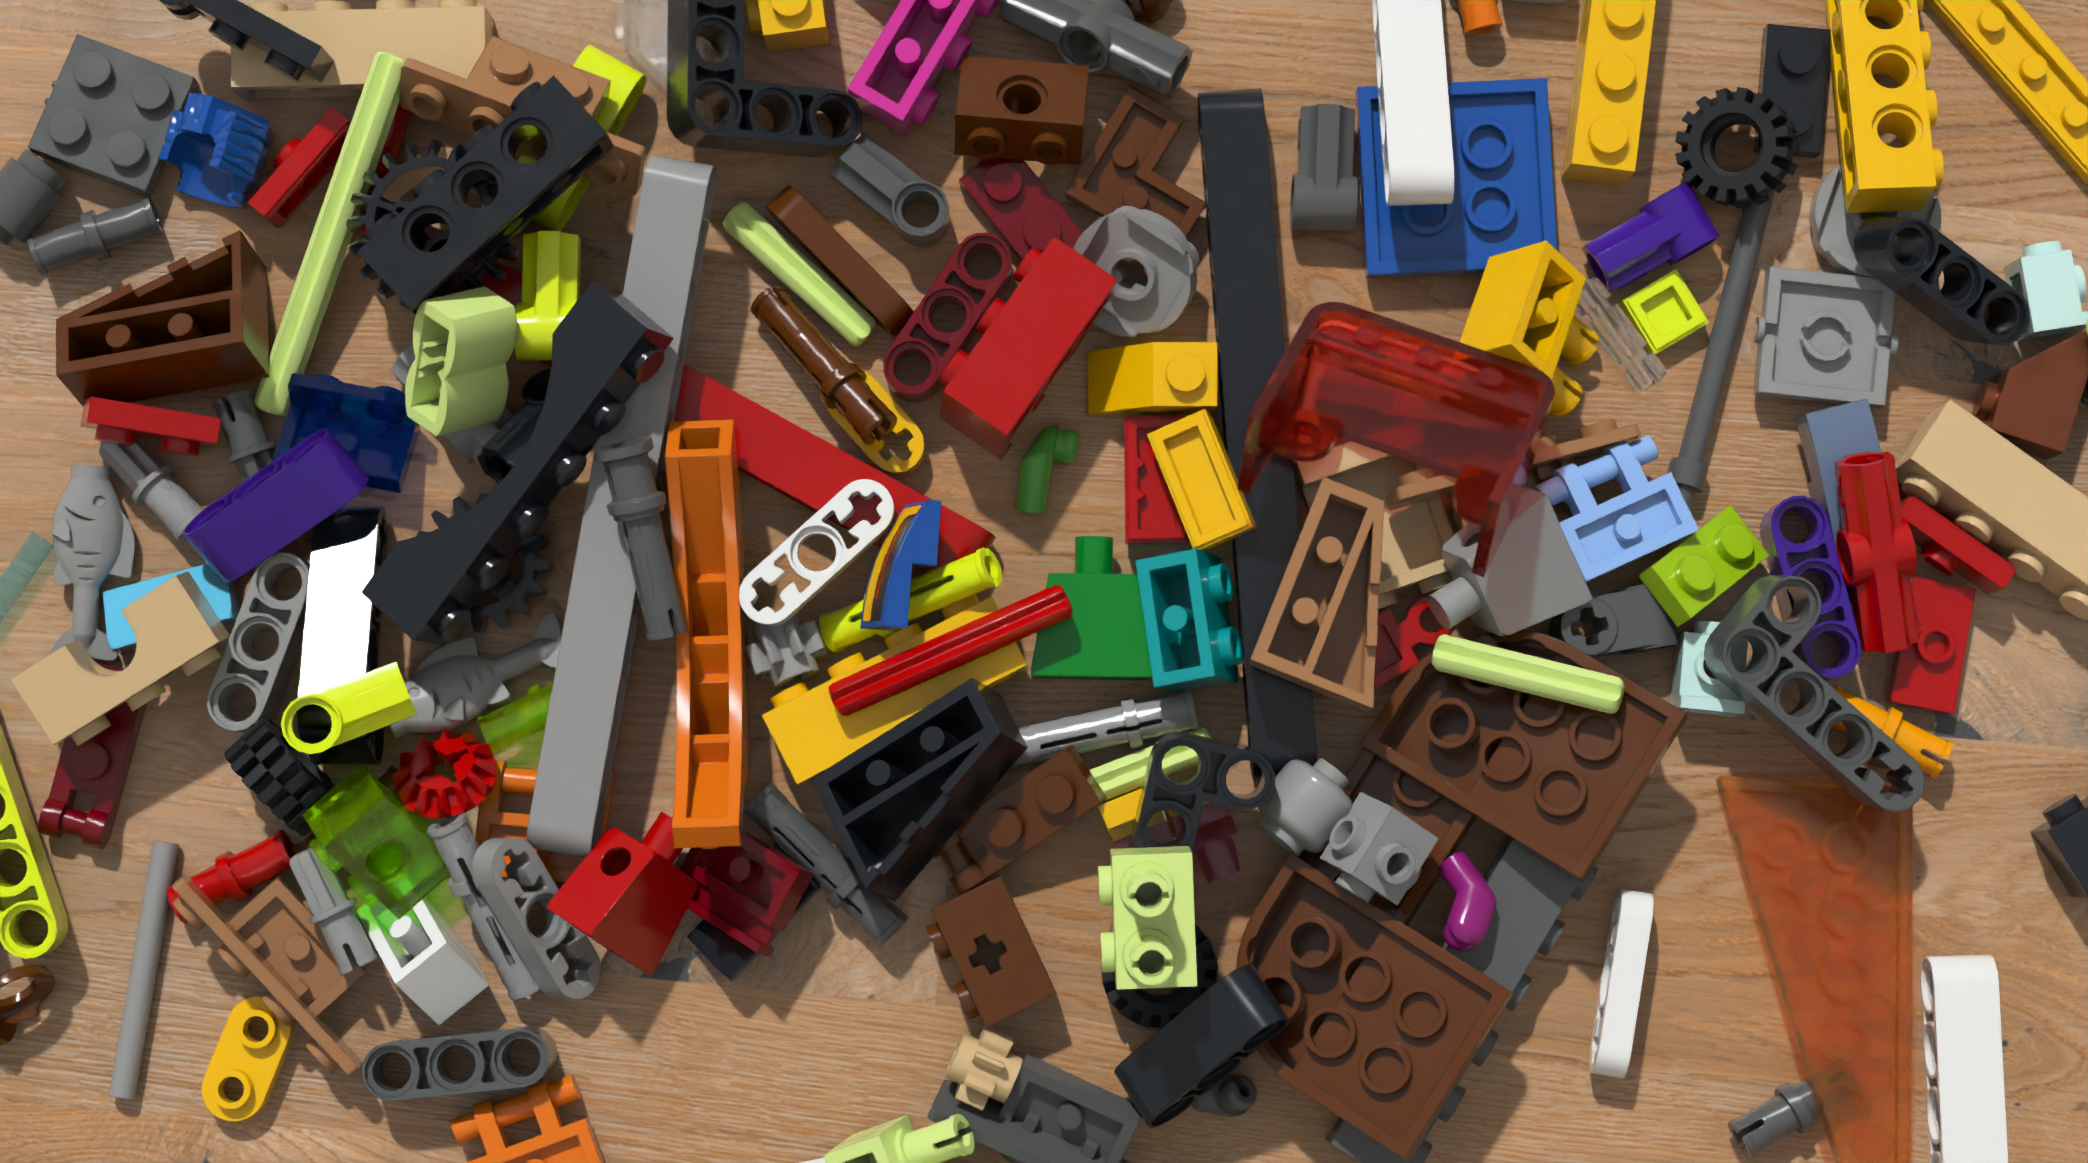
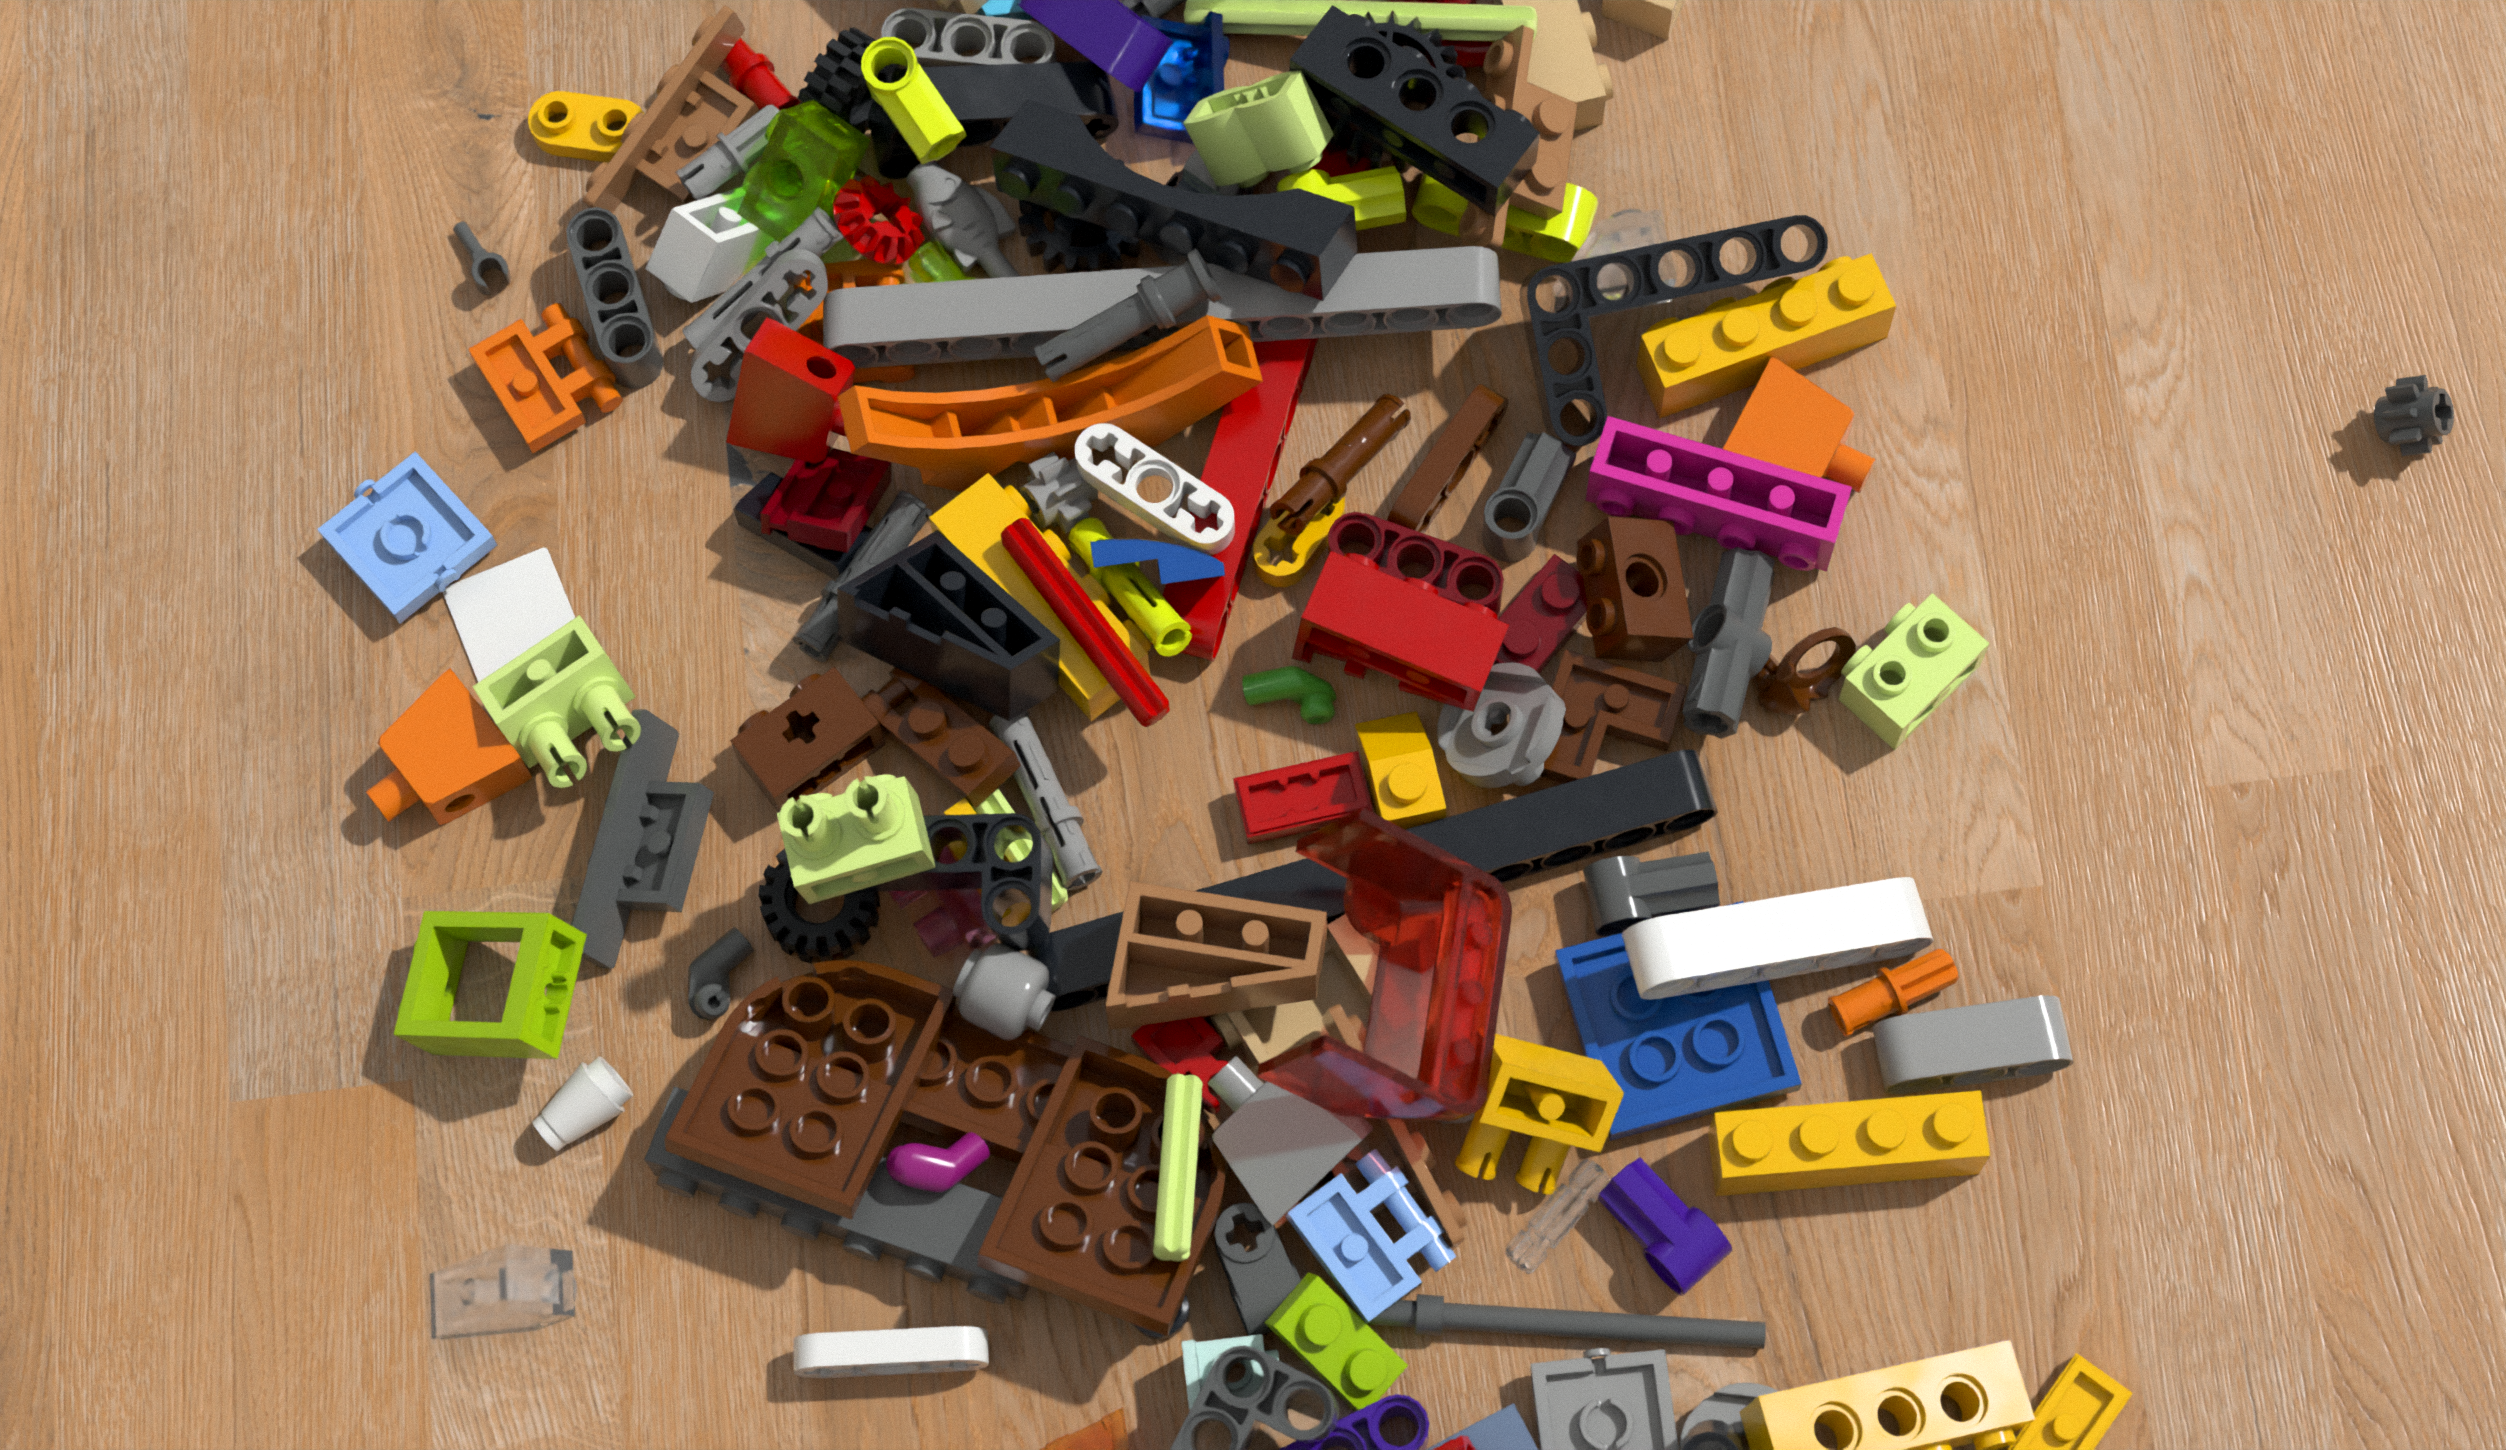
camera: 80 degrees right, 15 degrees down
(143, 970) = (642, 25): light grey bar -> none
(799, 274) = (1437, 412): yellowish green axle -> none
(983, 1068) = (693, 752): tan gear -> none
(1107, 624) = (1150, 771): green torso -> none
(1188, 620) = (1168, 842): teal brick -> none
(1201, 480) = (1273, 837): yellow tile -> none
(1201, 1046) = (747, 938): black beam -> none
(1377, 850) = (970, 1059): light grey brick -> none
(1664, 312) = (1592, 1260): neon yellow tile -> none
(1706, 126) = (1773, 1256): black tyre -> none
(1796, 79) = (1856, 1340): black plate -> none

